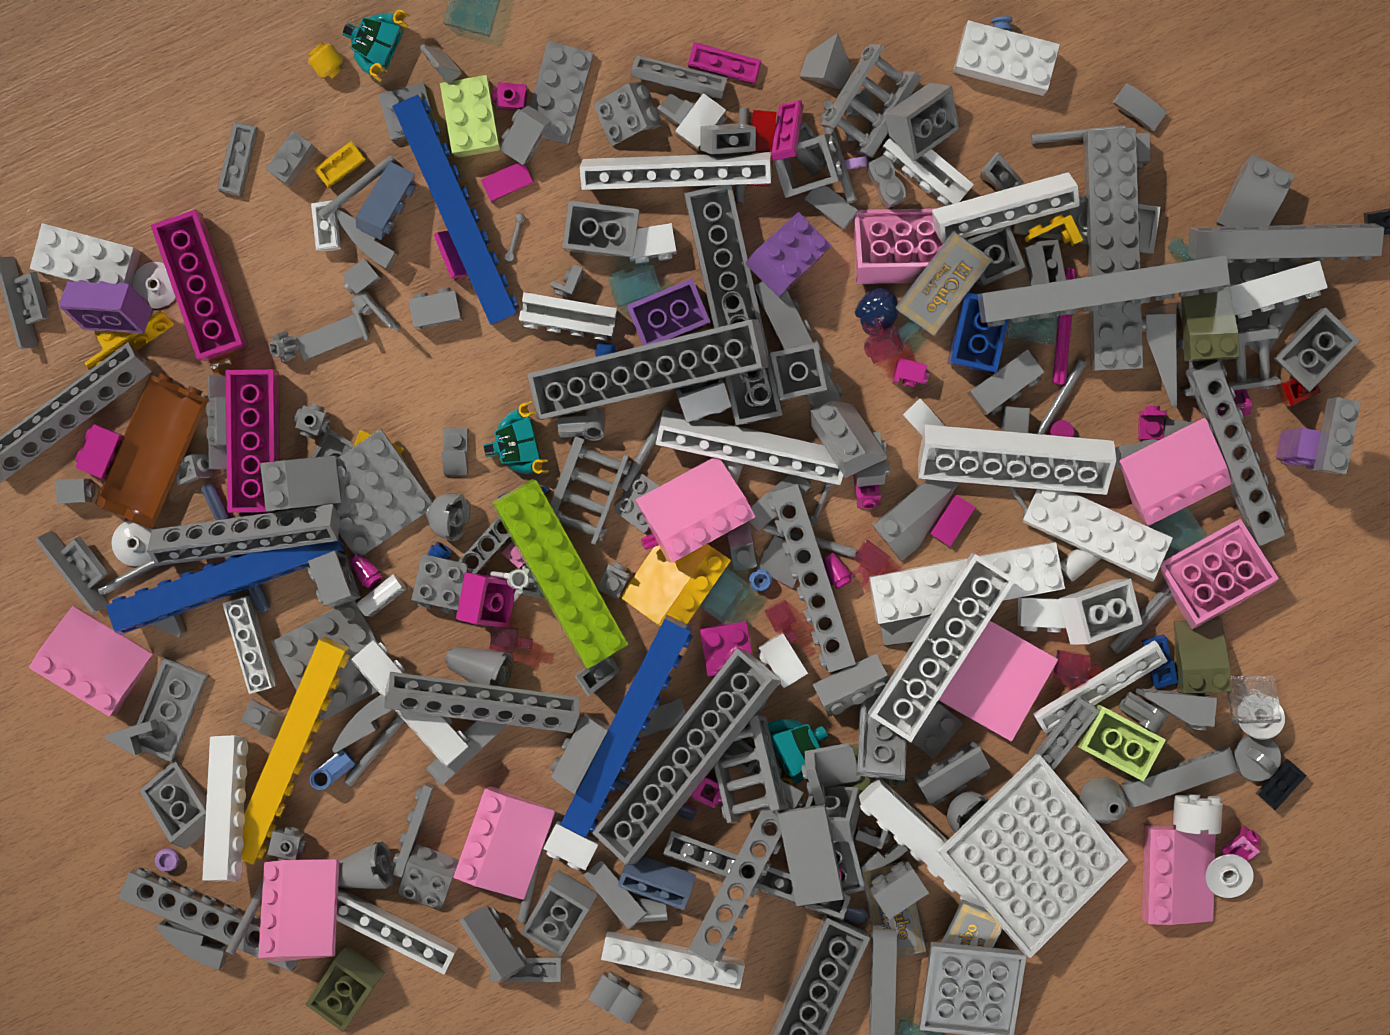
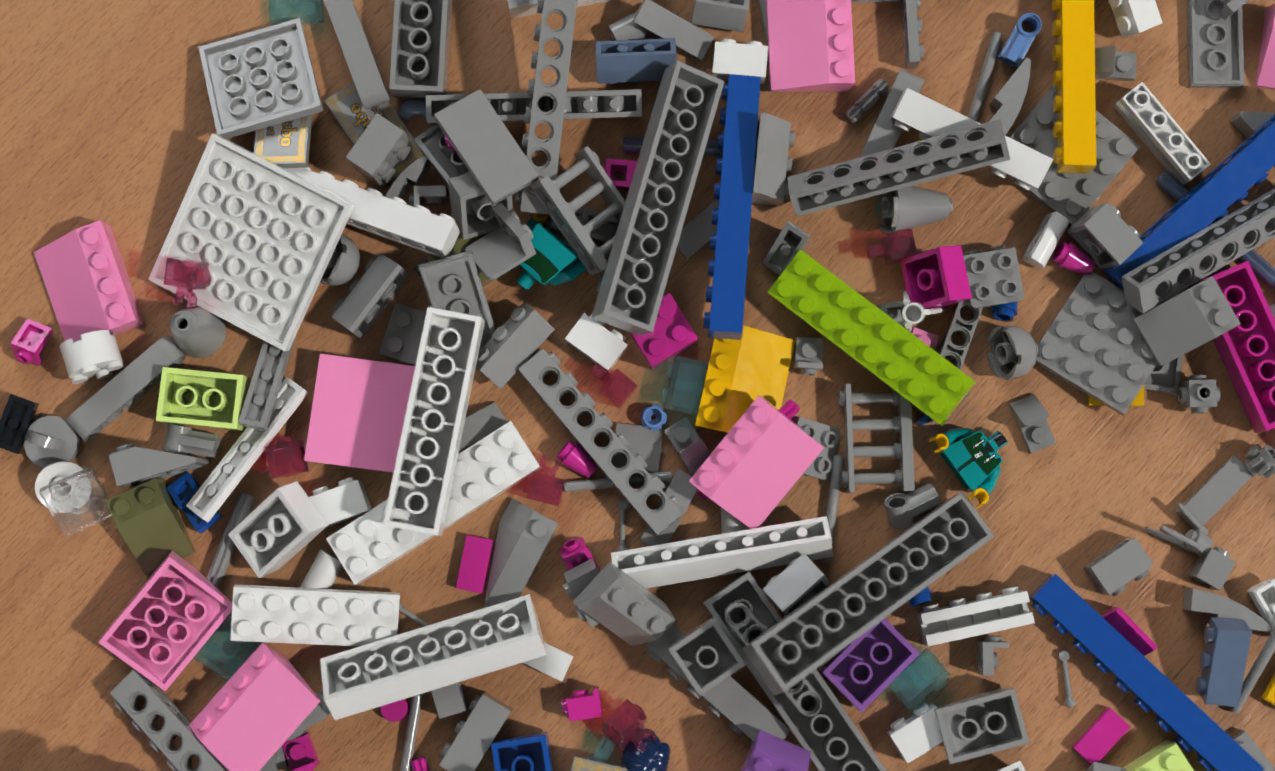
camera: 155 degrees right, 5 degrees down
(479, 771) = (867, 100): none -> light grey axle
(1095, 847) = (186, 276): none -> clear pink brick
(1230, 884) = (29, 297): white dish -> none

